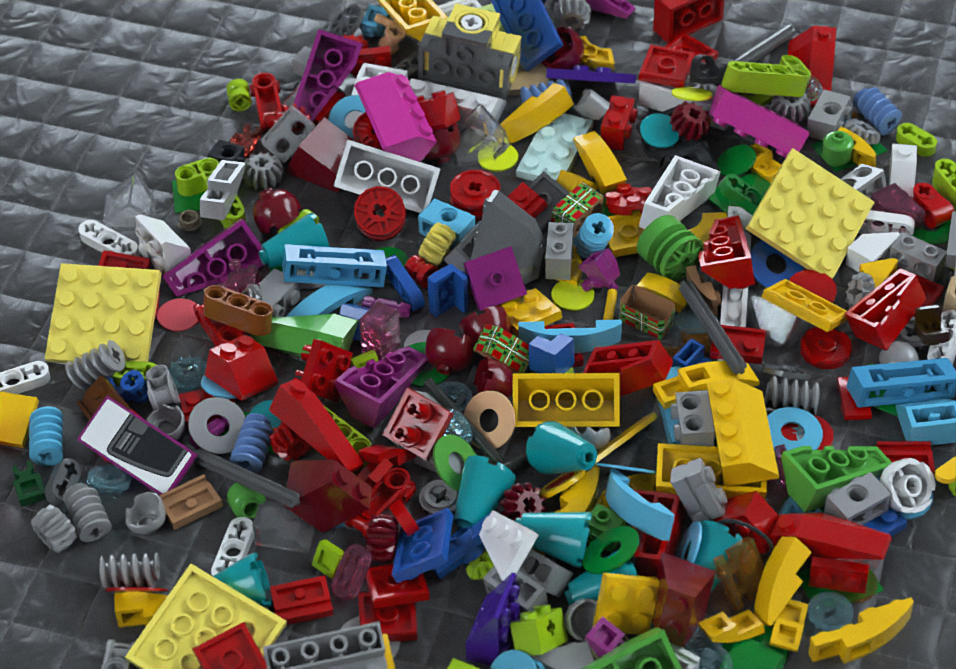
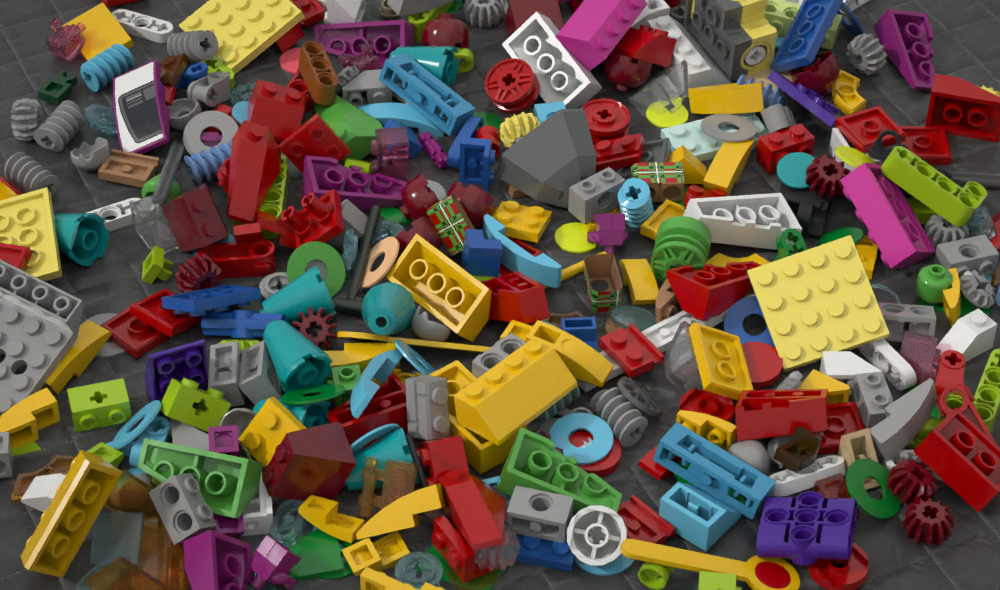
camera: 45 degrees right, 5 degrees down
(58, 479) = (76, 94): dark grey beam -> none
(302, 600) = (101, 276): red plate -> none
(351, 572) = (158, 277): clear pink plate -> none
(404, 517) = (227, 274): red beam -> none
(494, 278) = (515, 174): magenta plate -> none
(506, 543) = (243, 327): white wing -> none
(549, 134) = (746, 131): none -> light grey gear
(712, 327) = (618, 320): dark grey axle -> none
(857, 355) = (709, 427): none -> yellow slope

